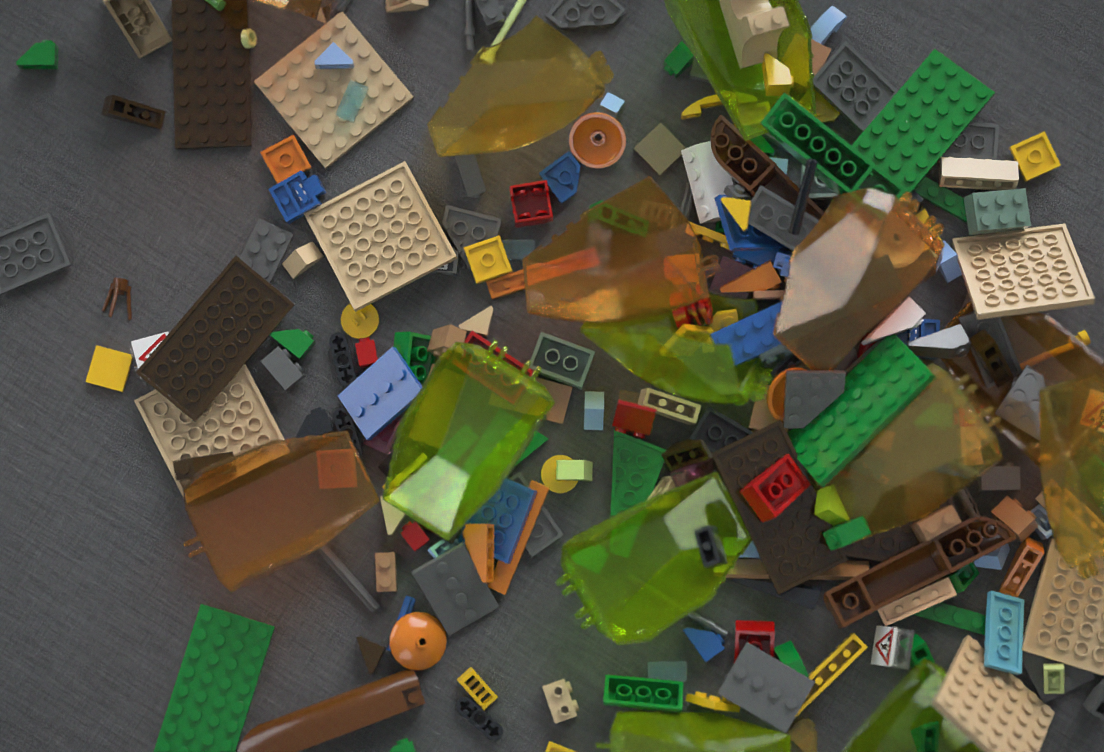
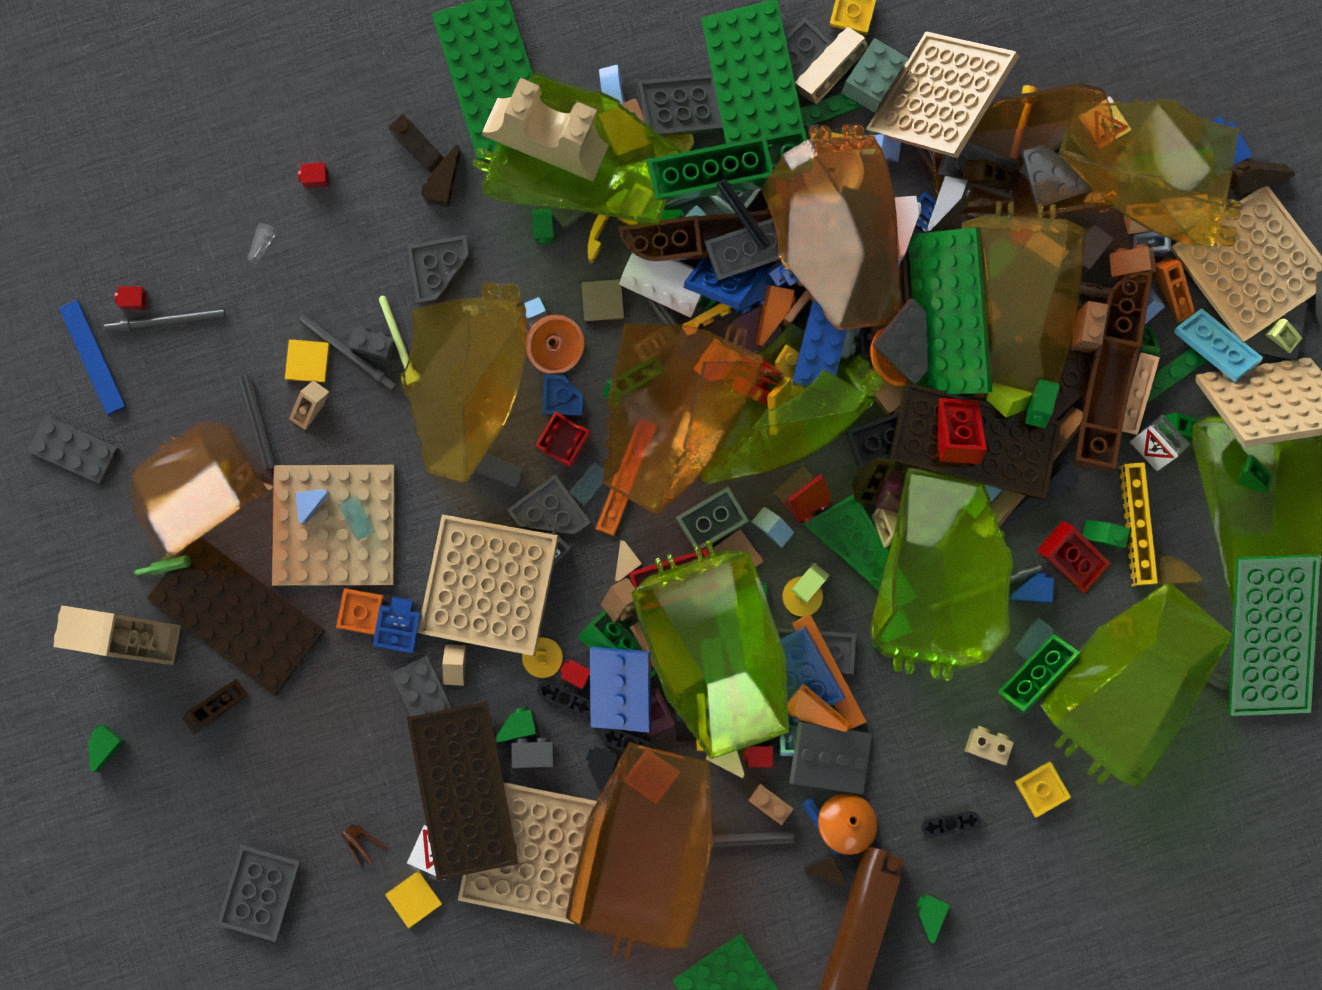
camera: 50 degrees left, 0 degrees up
(188, 468) = (559, 887): dark brown slope -> none
(248, 38) = (232, 560): yellowish green tile -> none
(465, 676) = (909, 812): yellow slope -> none
(488, 259) = (580, 512): yellow tile -> none
(670, 406) = (820, 463): tan brick -> none
(710, 546) = (966, 522): black brick -> none
(712, 702) = (1090, 623): yellow plate -> none
(737, 192) = (694, 266): dark grey plate -> none
(739, 209) = (712, 275): yellow slope -> none
(766, 687) = (1113, 570): dark grey plate -> none
(776, 77) = (624, 157): yellow slope -> none

